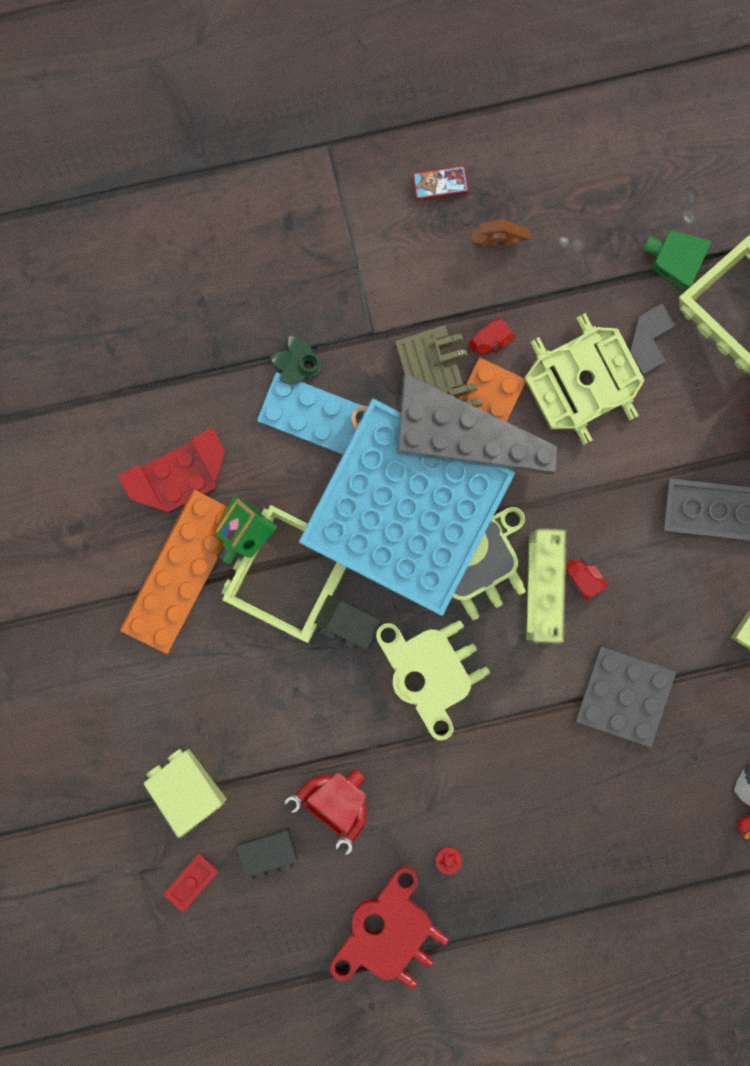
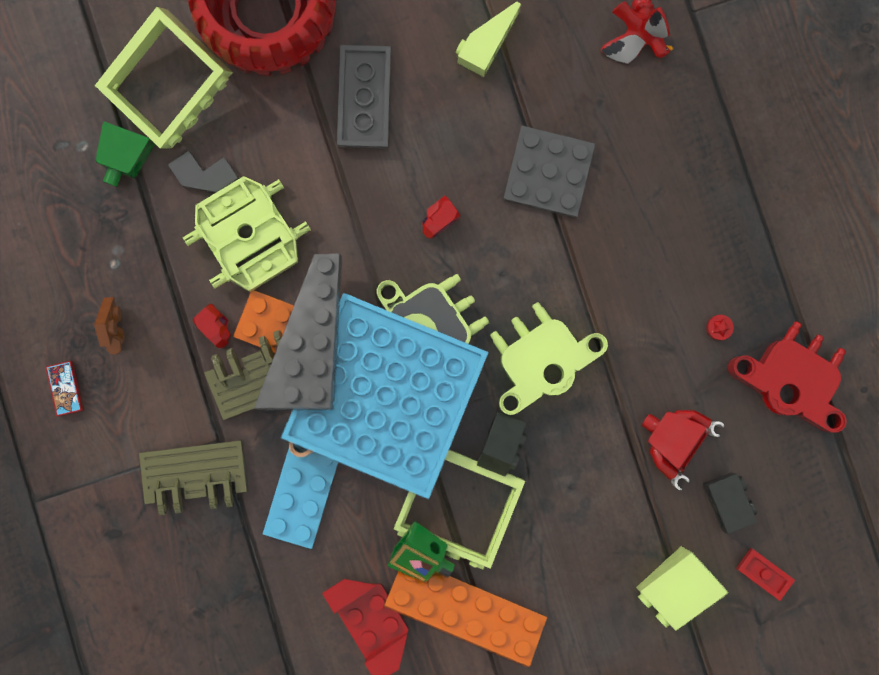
camera: 95 degrees left, 0 degrees up
(293, 361) = (251, 518): dark green plate -> none
(345, 310) = (196, 471): none -> olive hinge
(545, 585) = (452, 254): yellowish green window -> none

